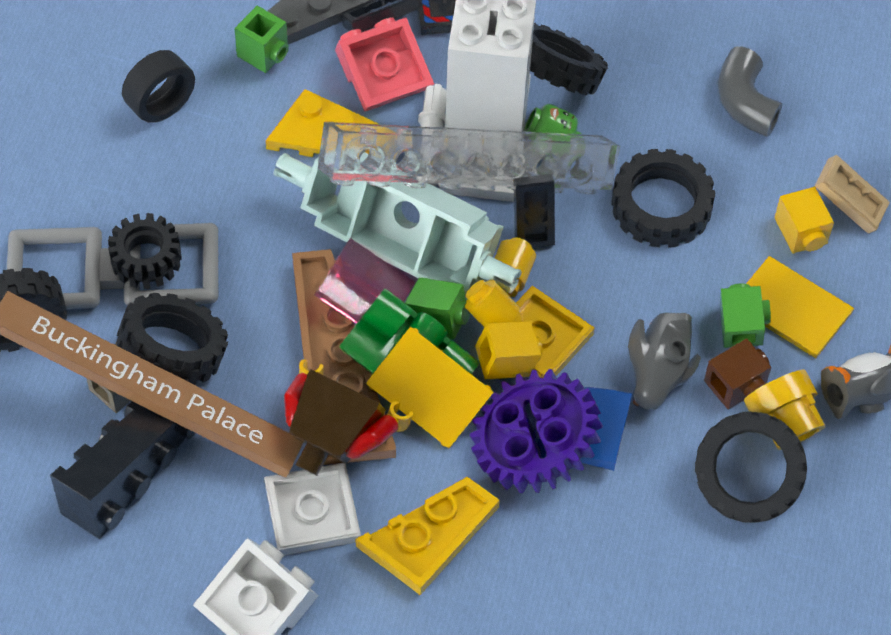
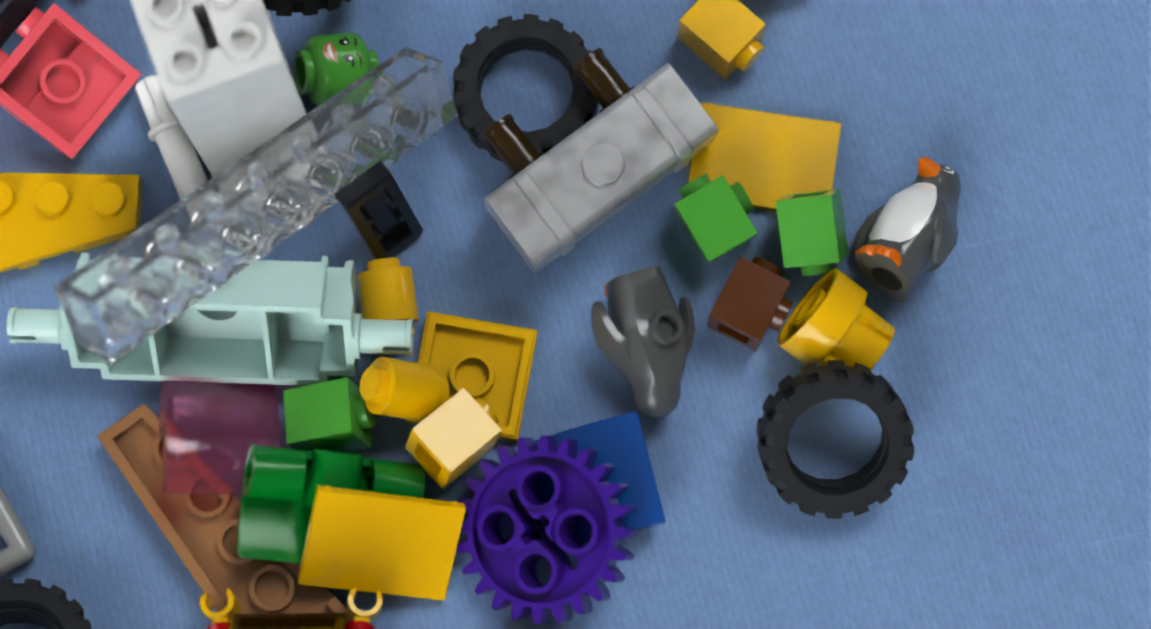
camera: 25 degrees left, 20 degrees up
(685, 247) = (600, 166): none -> flat silver piece
(802, 346) = (812, 231): none -> bright green brick

